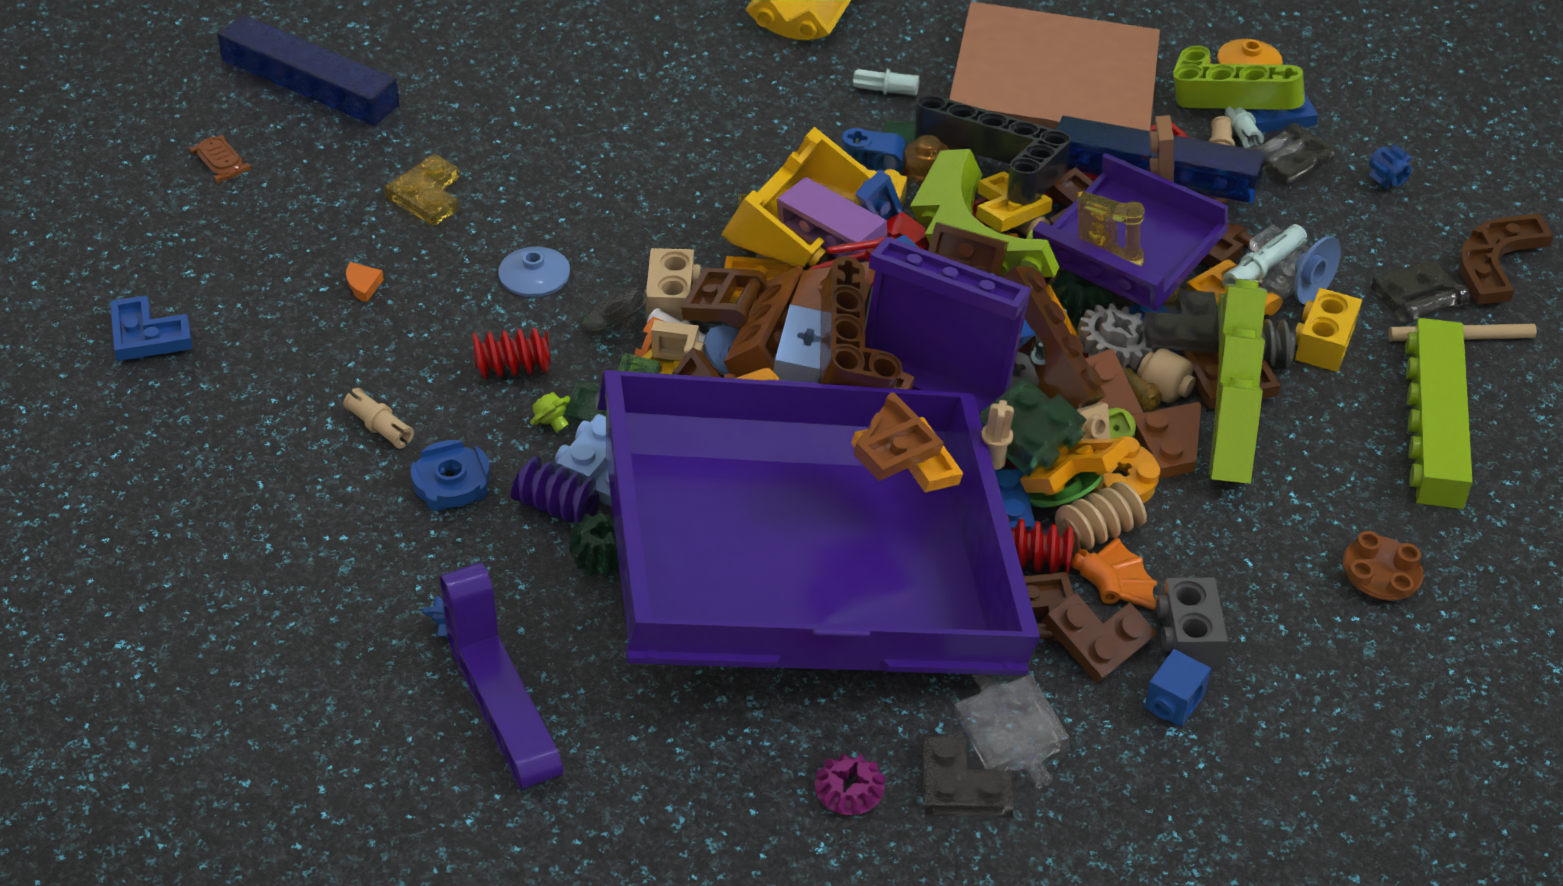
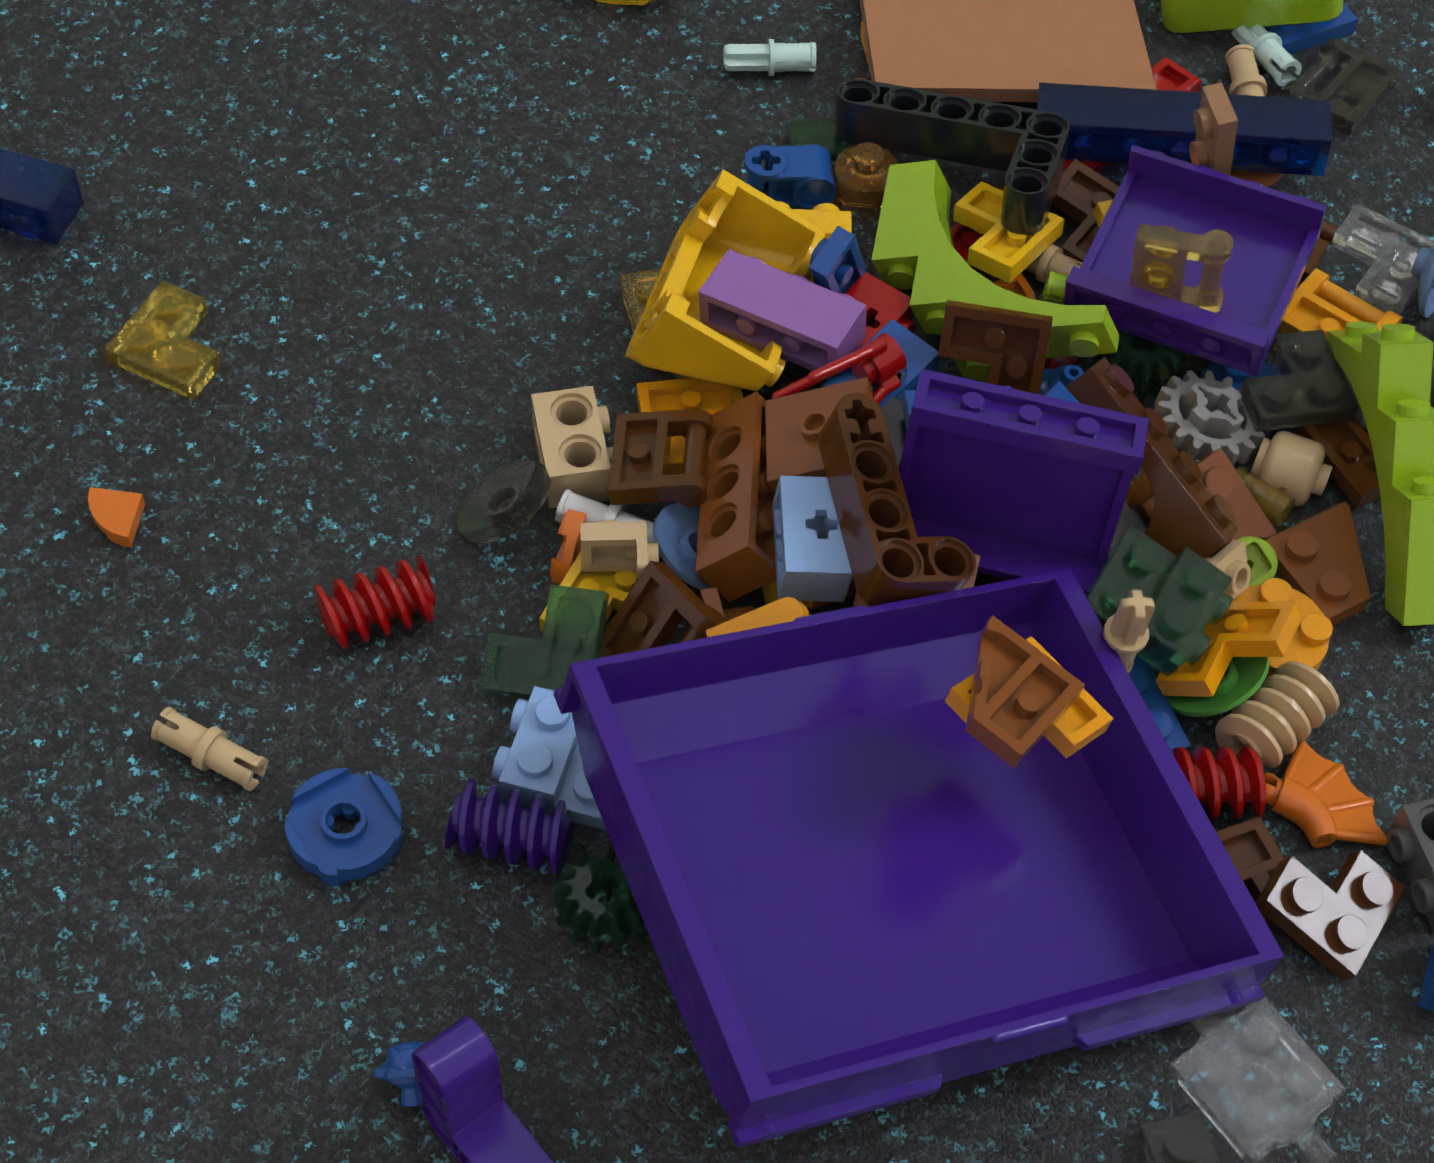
camera: 15 degrees left, 10 degrees up
(534, 271) = (363, 466): medium blue dish -> none
(550, 411) = (459, 688): lime plant -> none
(1256, 264) = (1361, 276): light aqua pin -> none

